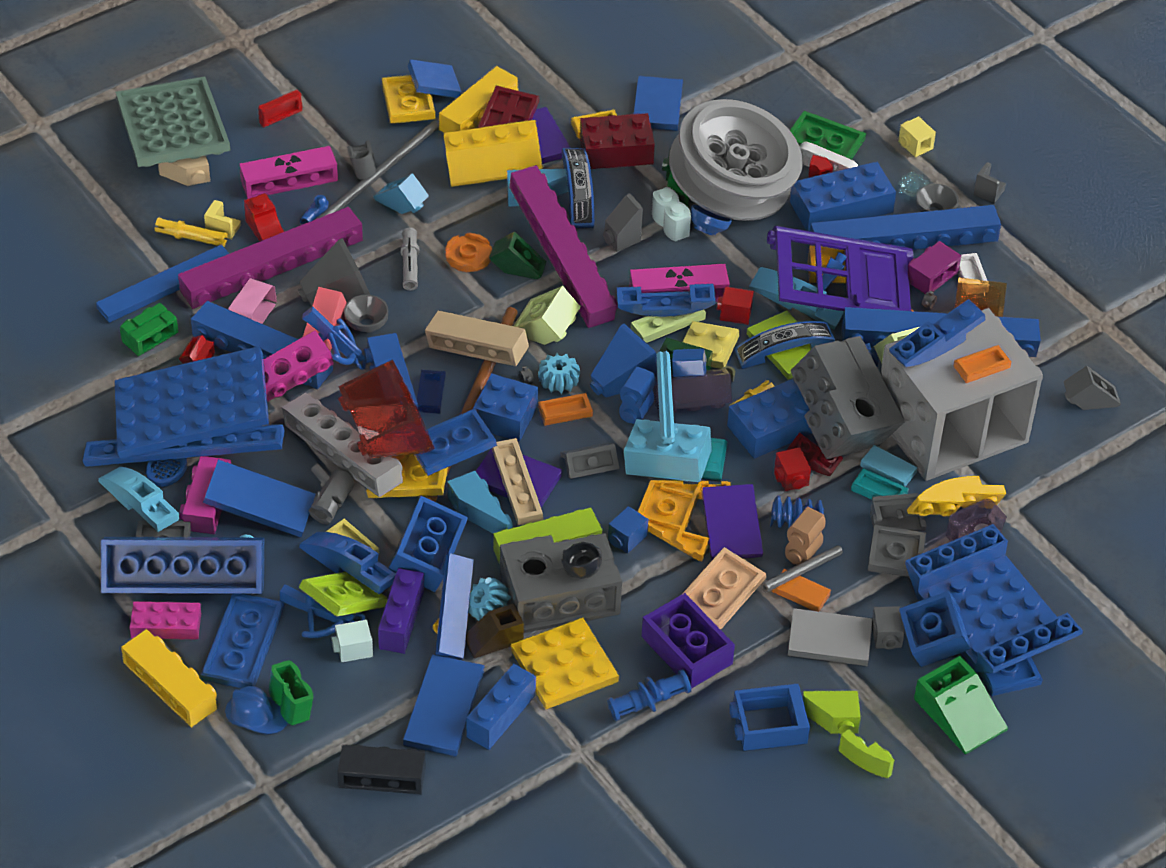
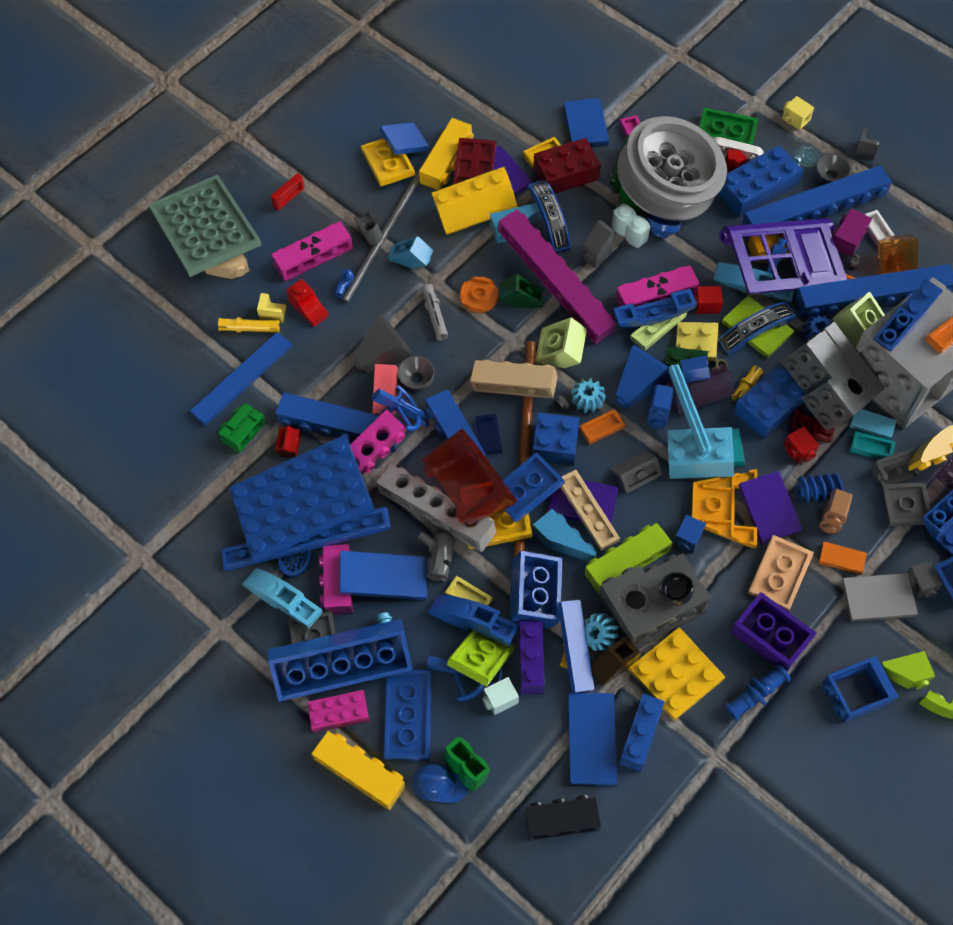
camera: 10 degrees left, 15 degrees up
(251, 303) = (321, 383): bright pink piece -> none
(269, 257) = (321, 336): magenta brick -> none
(801, 569) = (841, 536): dark grey piece -> none

